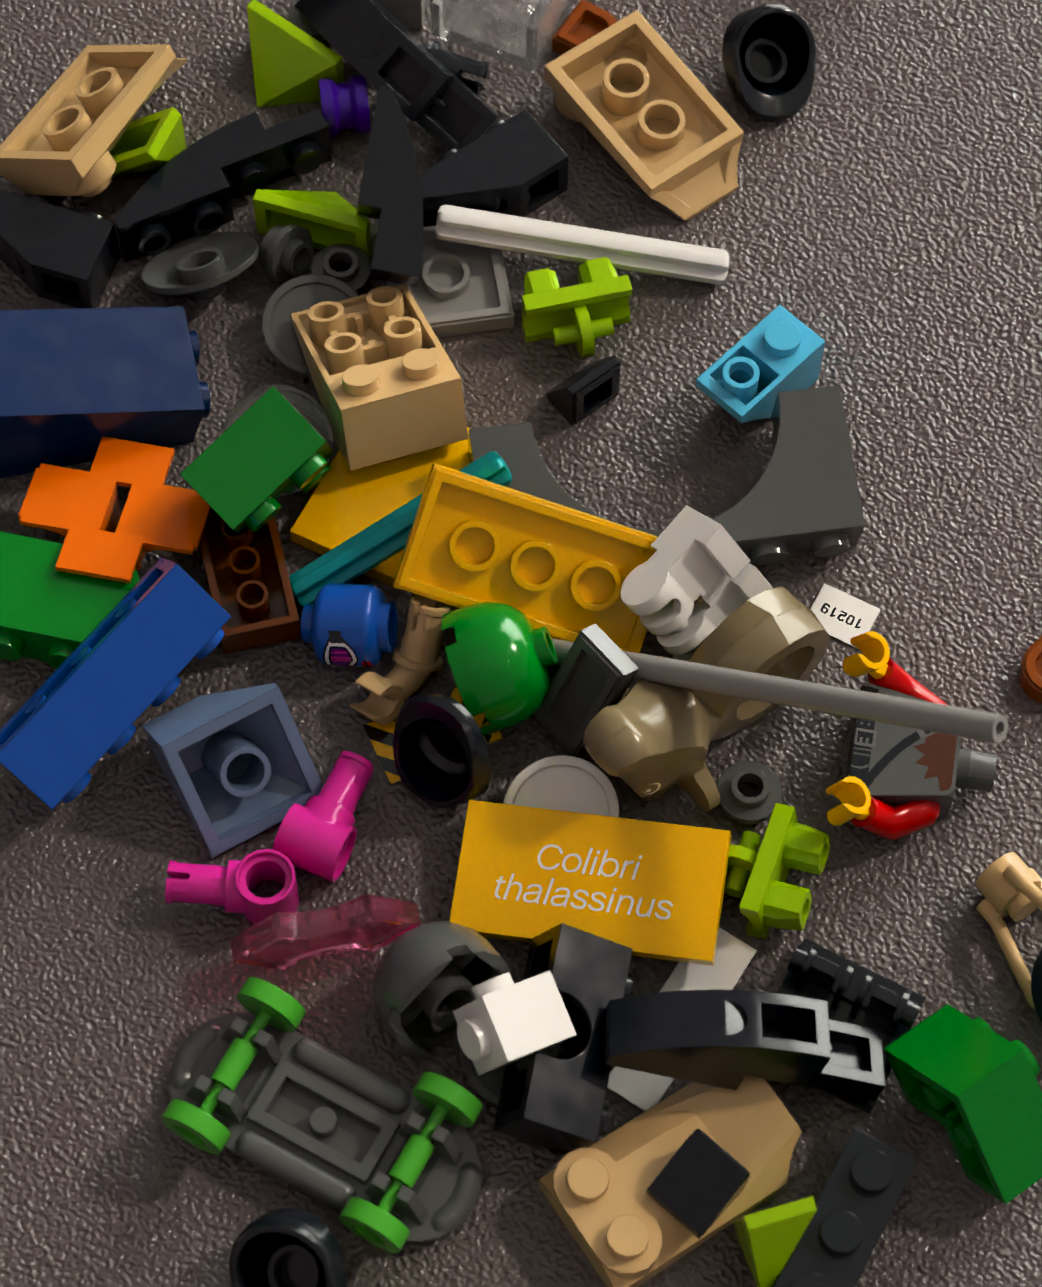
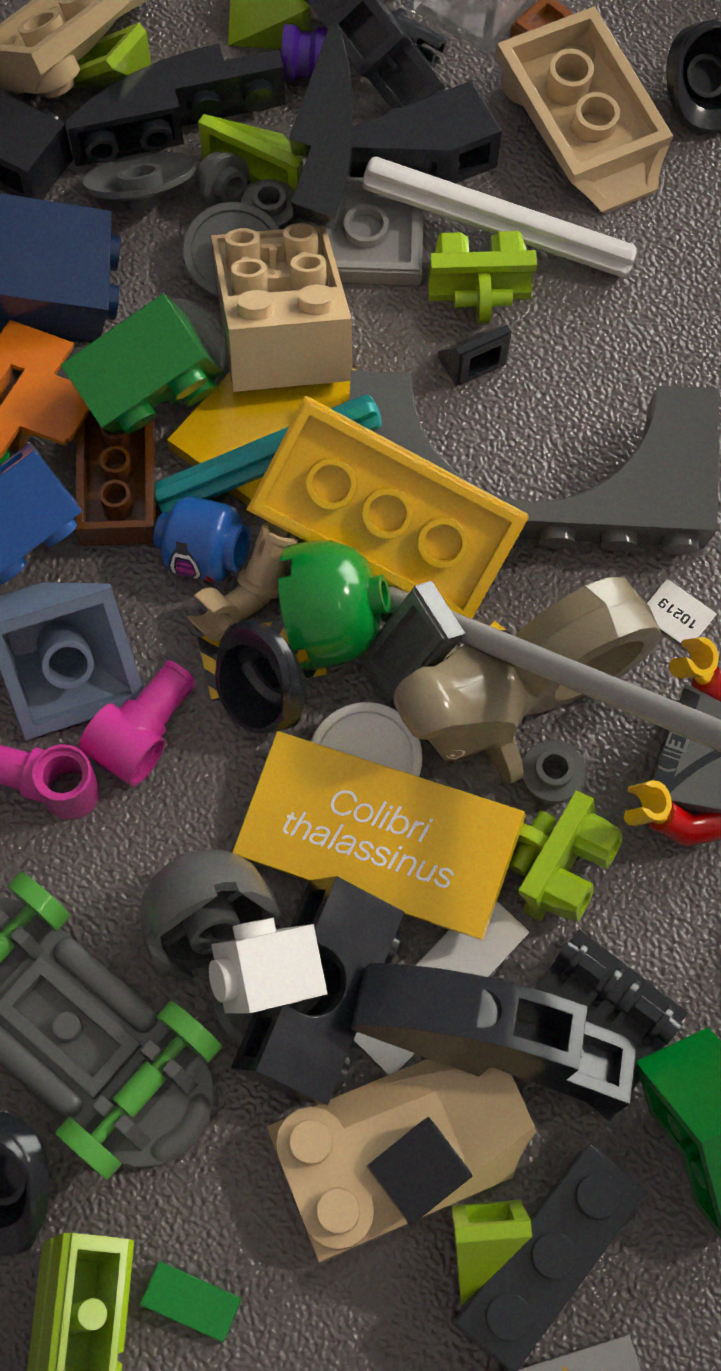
camera: 10 degrees right, 5 degrees up
(295, 937) = (80, 837): clear pink tile -> none
(690, 583) = (535, 557): white legs -> none
(769, 359) = (655, 353): medium azure slope -> none

